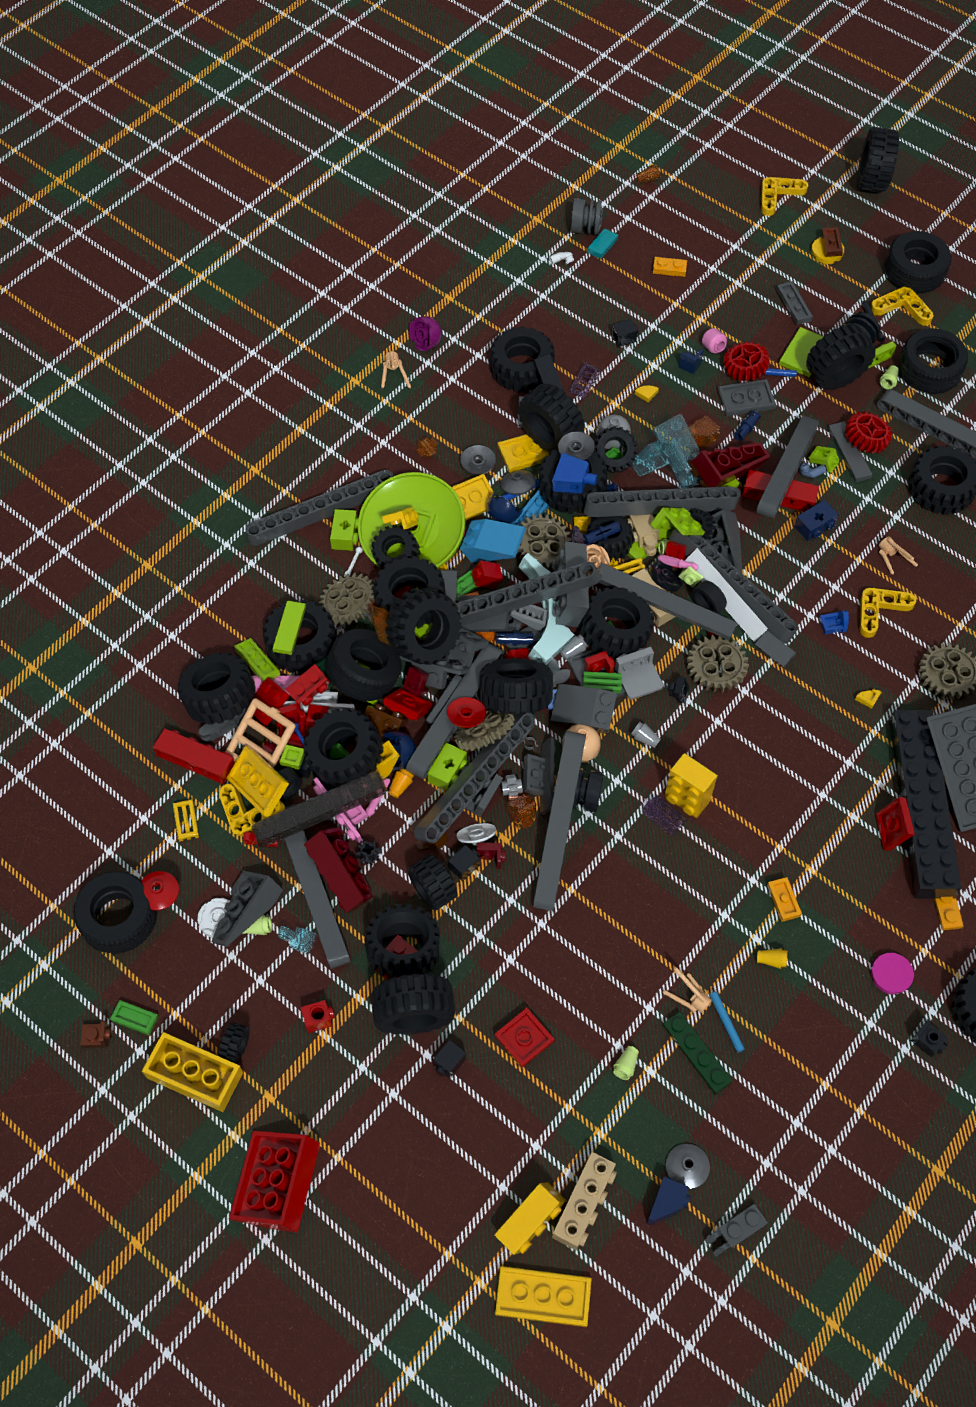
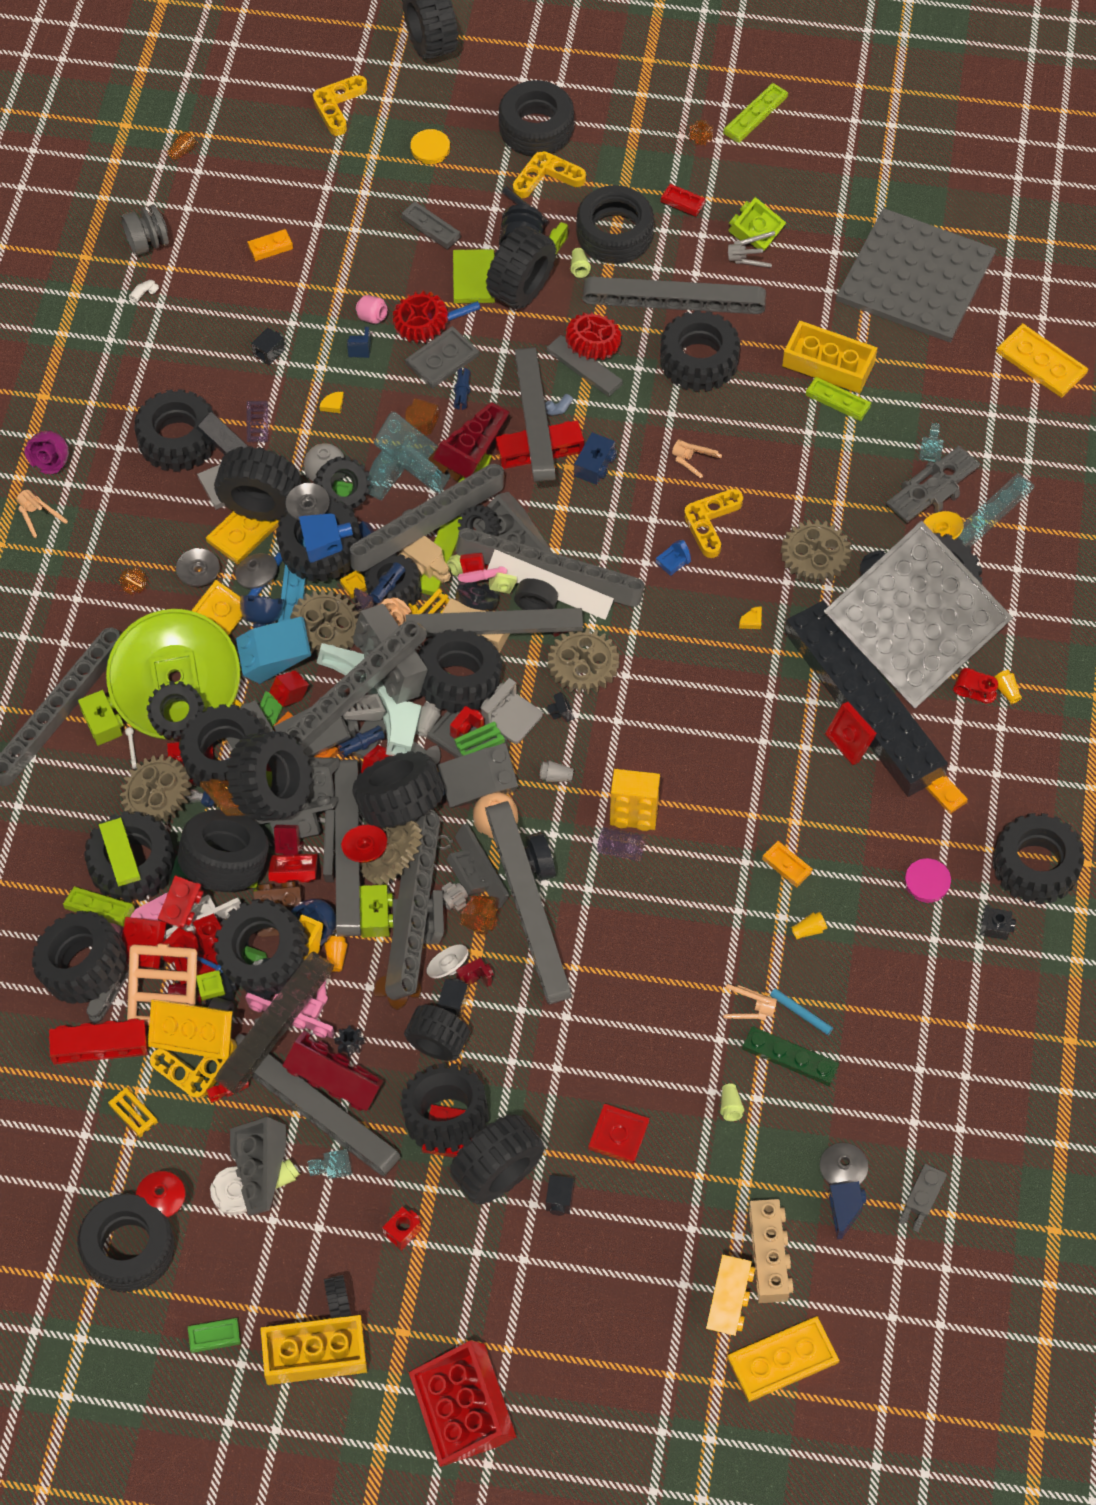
camera: 30 degrees left, 0 degrees up
(95, 1035) = (186, 1374): copper bracket -> none
(407, 516) = (159, 672): yellow bracket -> none
(602, 243) = (178, 252): teal tile -> none
(677, 517) = (458, 526): lime bracket -> none
(775, 649) = (631, 616): dark grey tile -> none
(825, 456) = (563, 384): lime bracket -> none
(832, 241) = (431, 136): copper plate -> none

